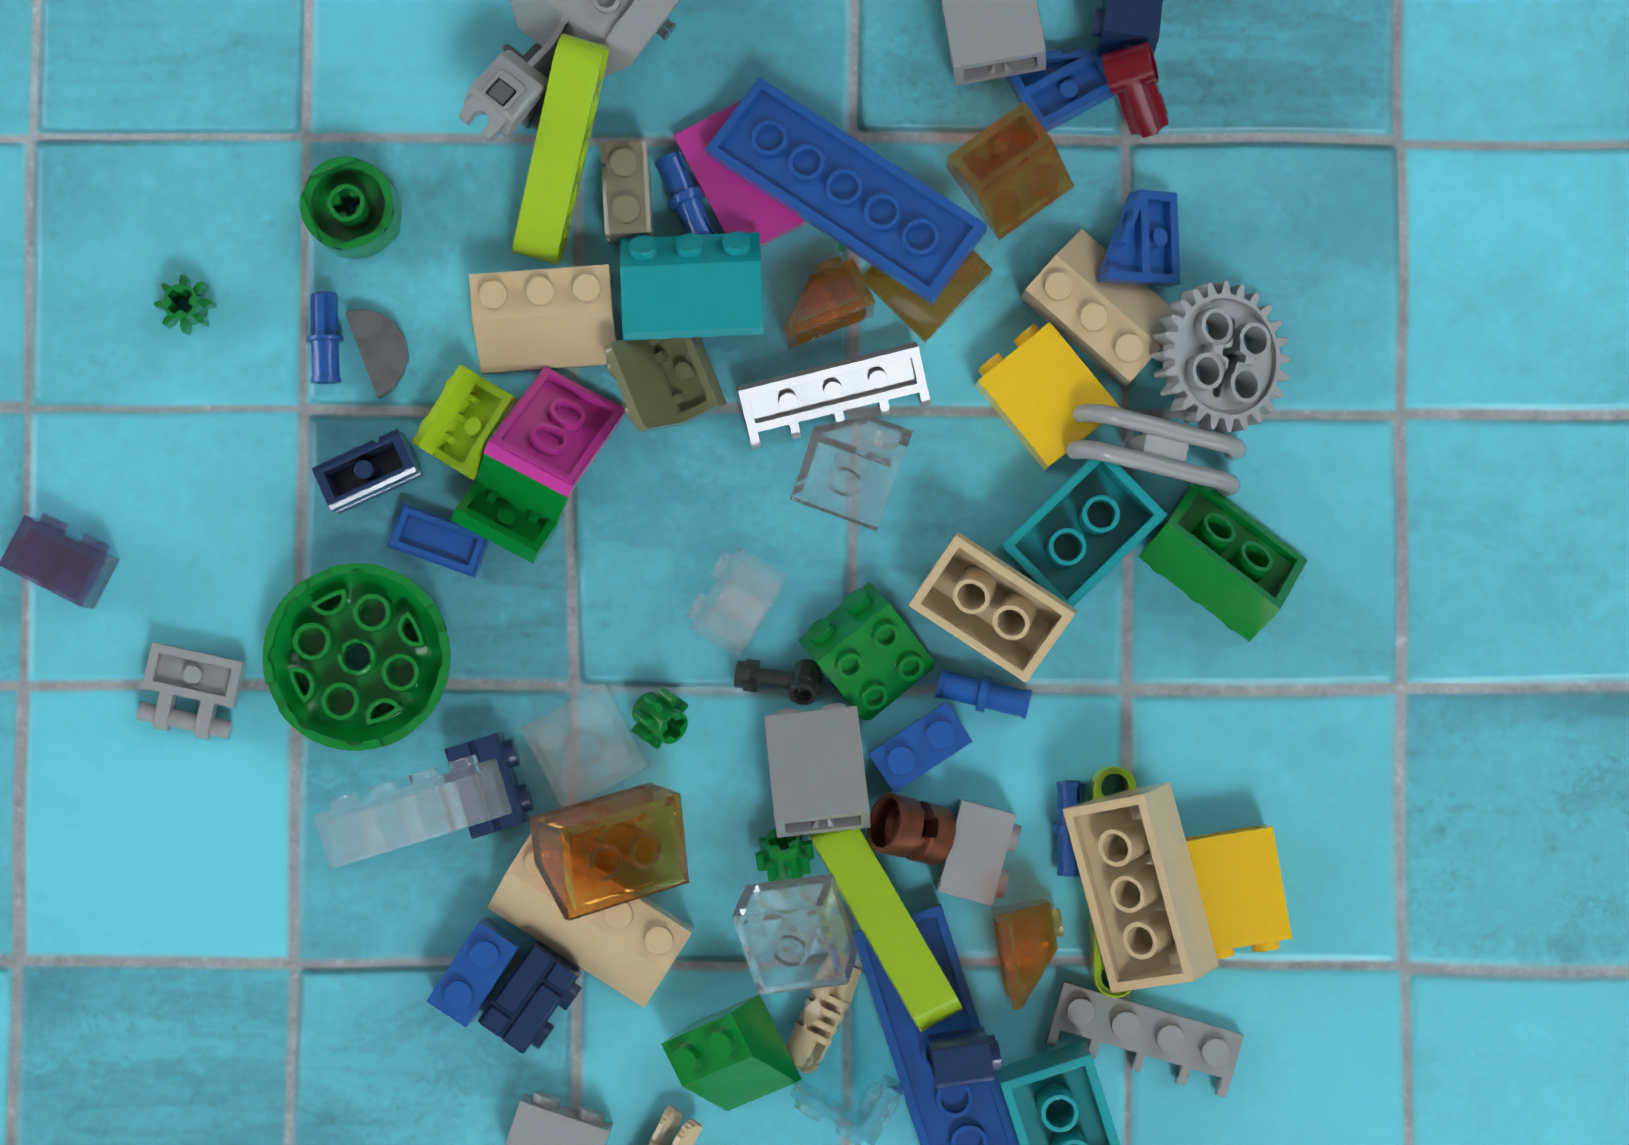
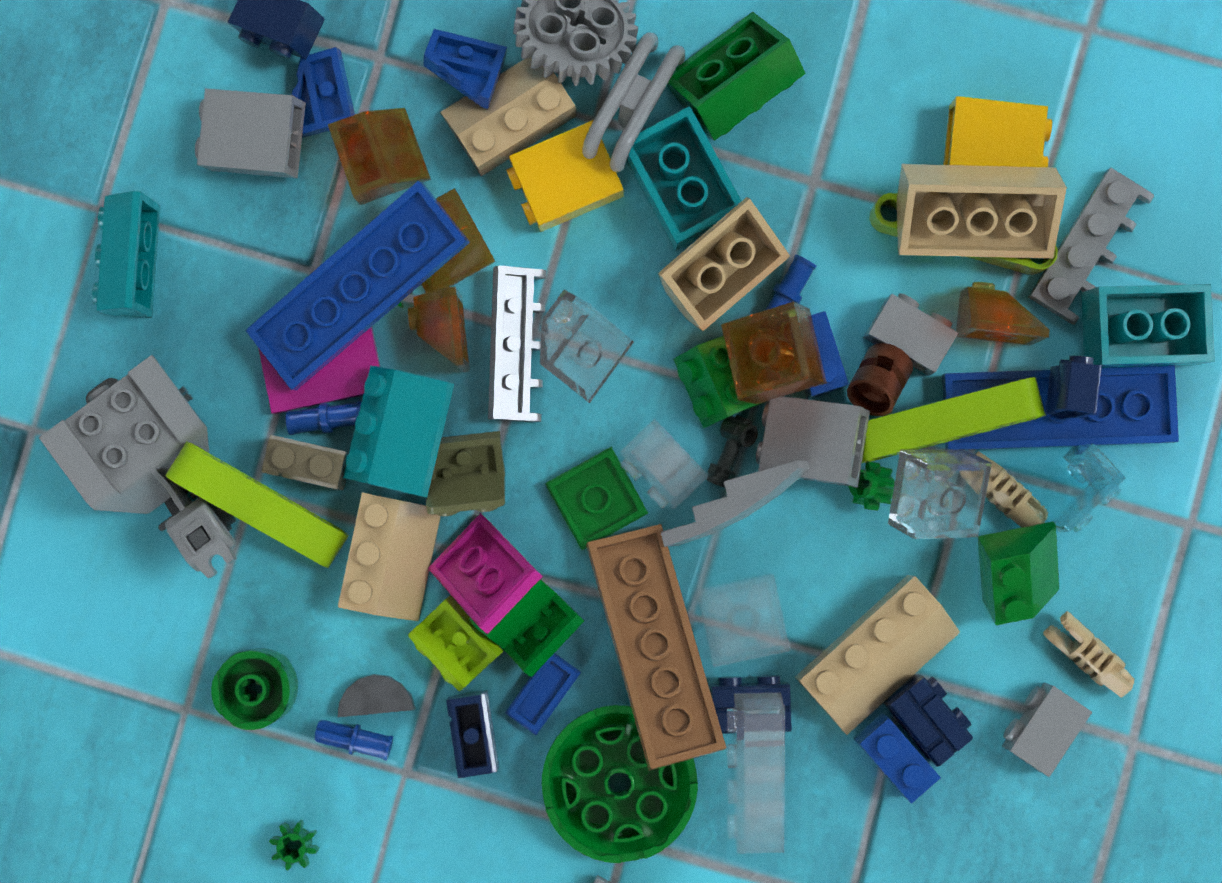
camera: 70 degrees left, 0 degrees up
(525, 653) = (655, 647): none -> medium nougat plate
(611, 849) = (831, 621): clear orange slope -> none
(659, 718) = (735, 554): green gear -> none
(680, 538) = (596, 498): none -> green tile
(725, 706) = (743, 498): none -> light grey slope
(903, 693) = (773, 353): none -> clear orange brick
(1068, 794) = (887, 248): blue pin -> none
(1135, 80) = (335, 33): dark red piece -> none

